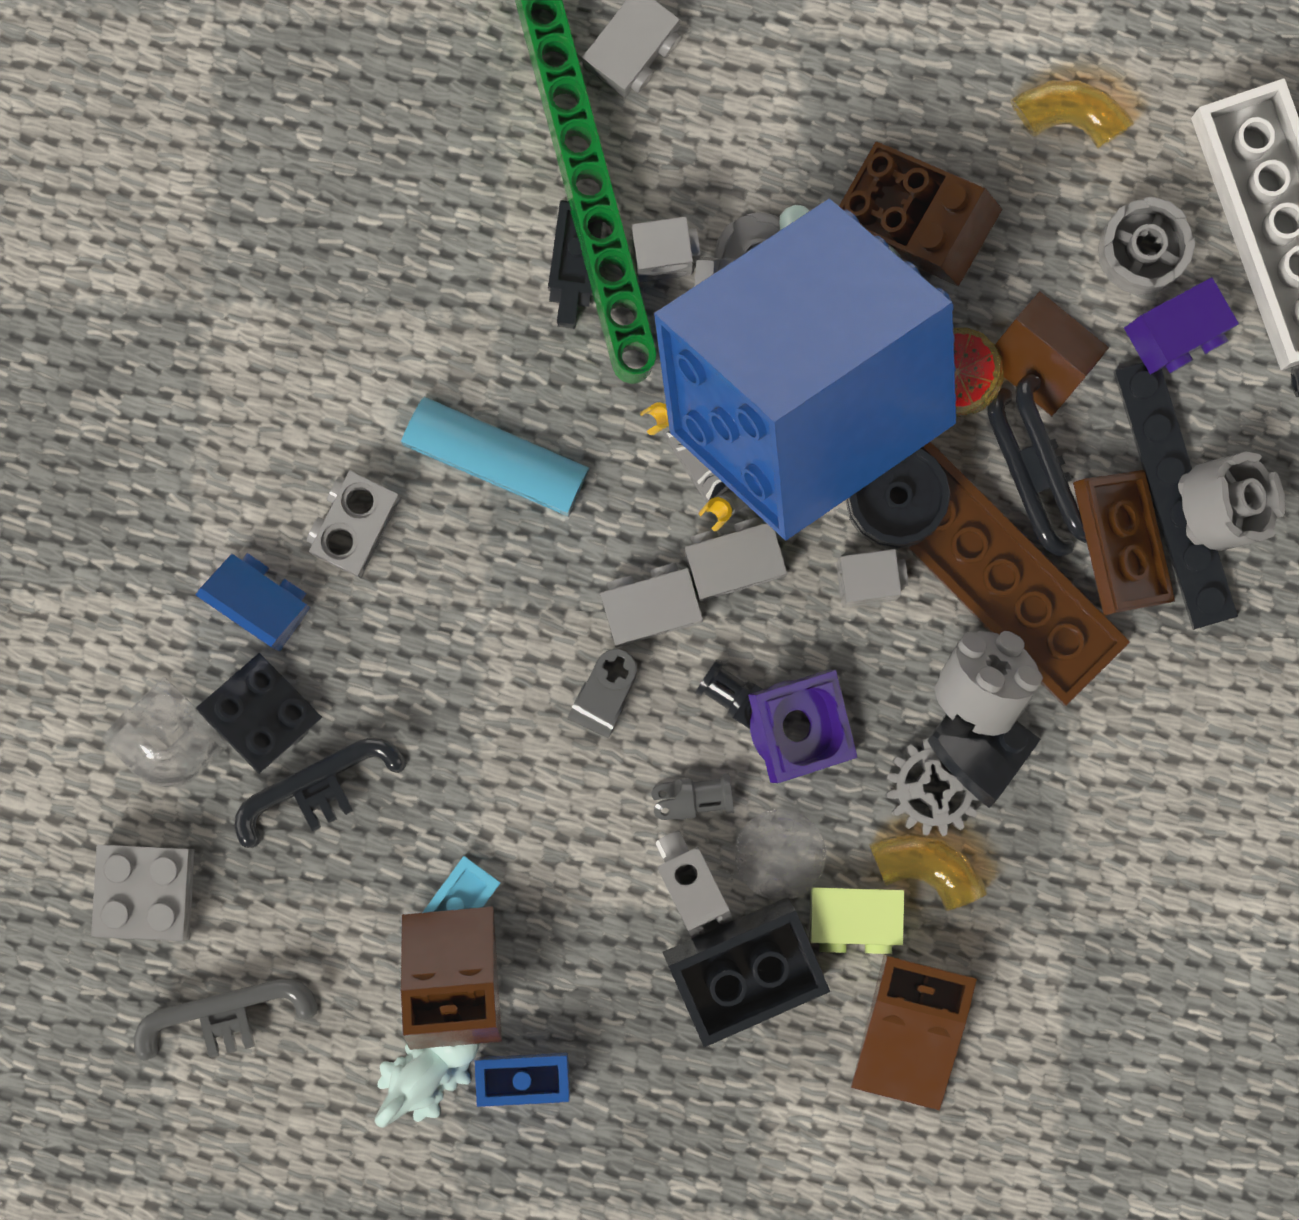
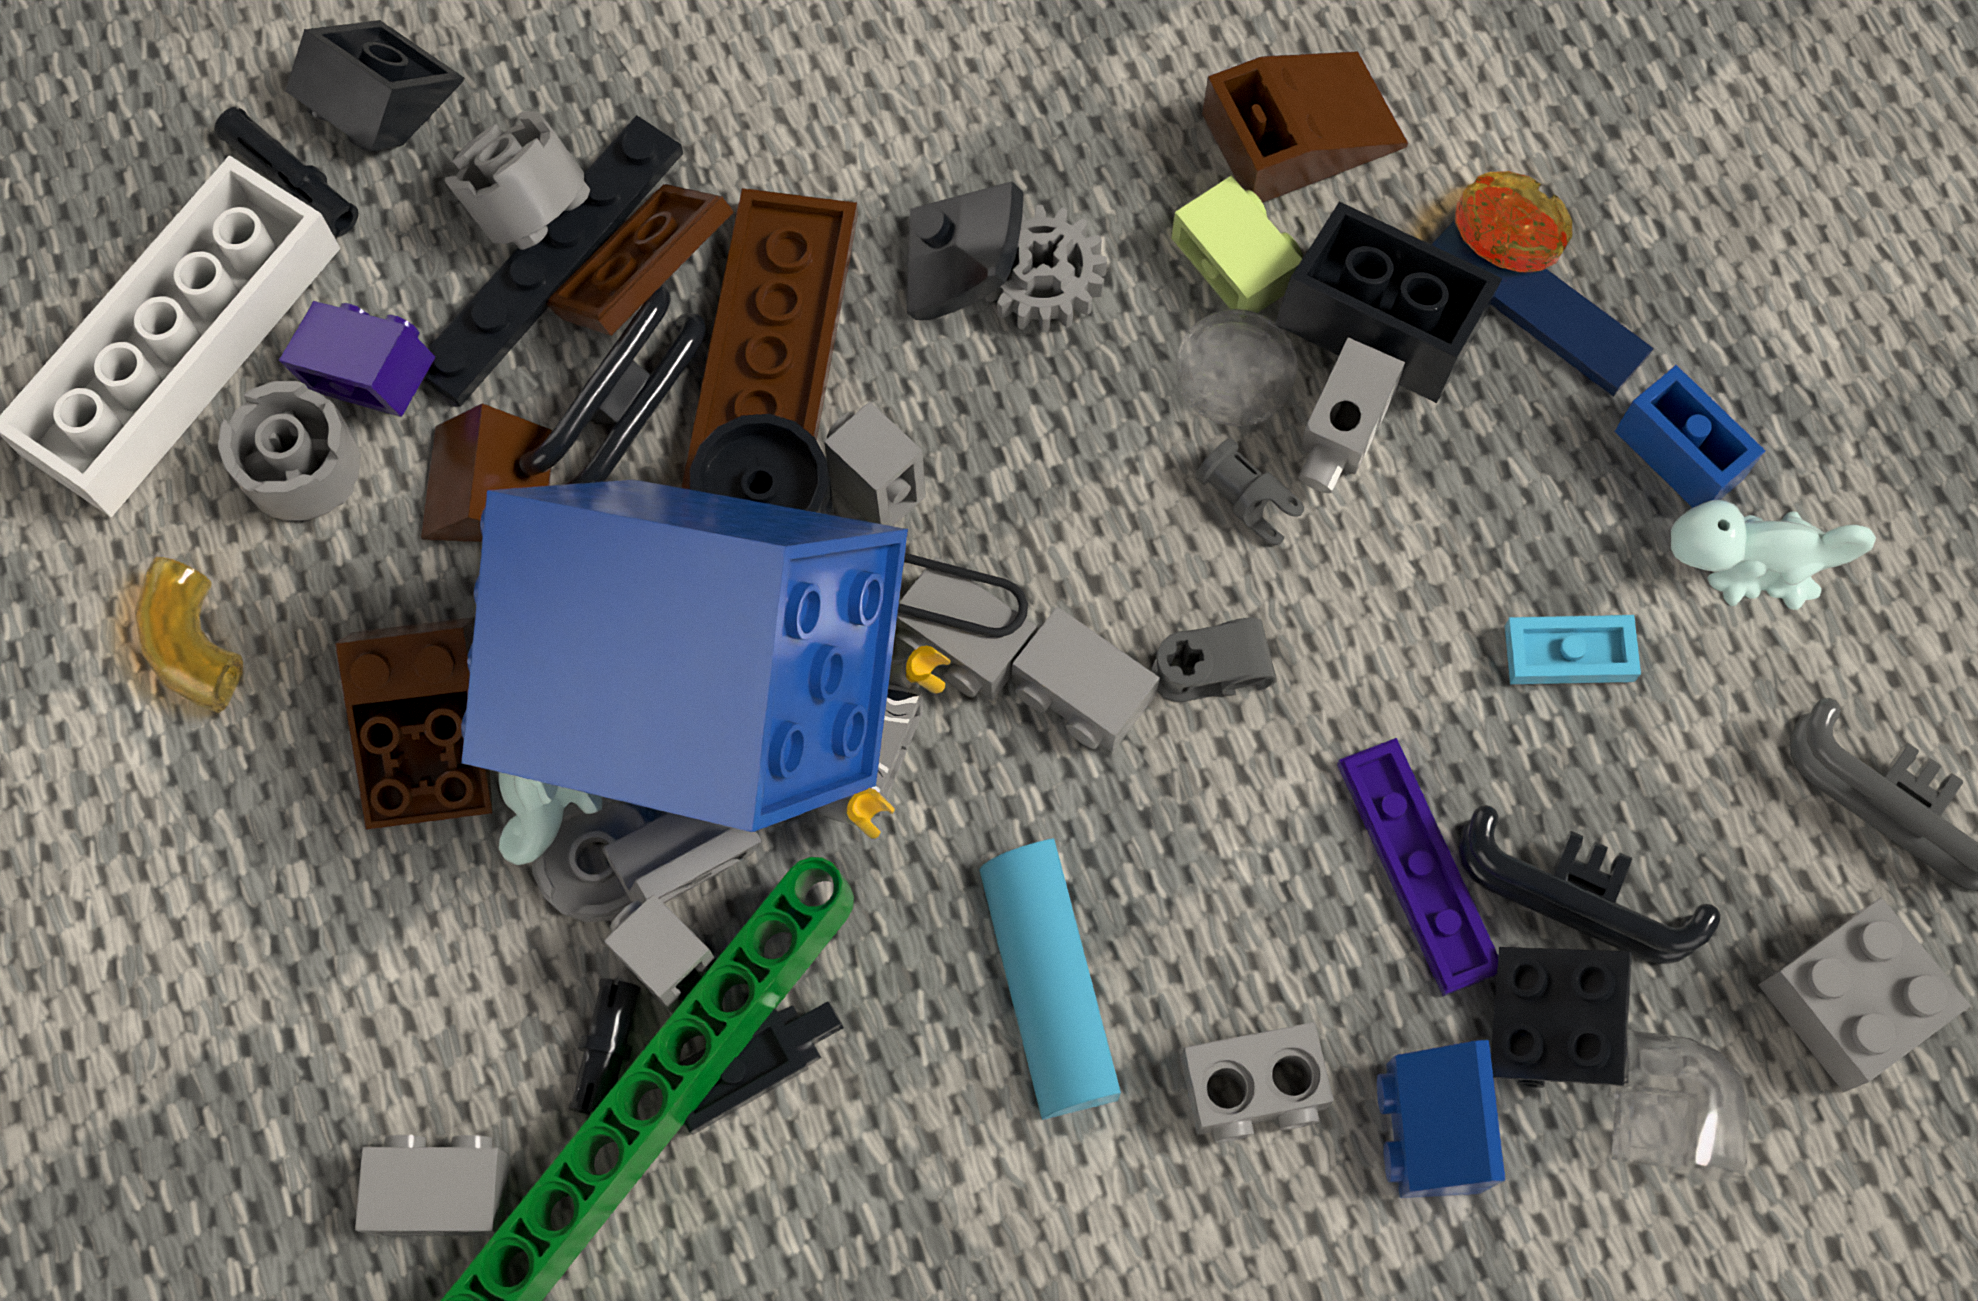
camera: 125 degrees left, 15 degrees down
(402, 715) = (1420, 867): none -> dark purple tile
(449, 978) = (1662, 572): reddish brown slope -> none
(642, 185) = (605, 1044): none -> black pin
(684, 1078) = (1560, 318): none -> dark blue tile
(731, 602) = (976, 576): none -> black piece
(737, 704) = (1108, 521): black connector -> none
(745, 1104) = (1513, 222): none -> tile
(829, 734) = (1083, 400): dark purple piece -> none
(932, 862) = (1122, 217): clear yellow cylinder -> none
(988, 681) = (892, 276): light grey brick -> none

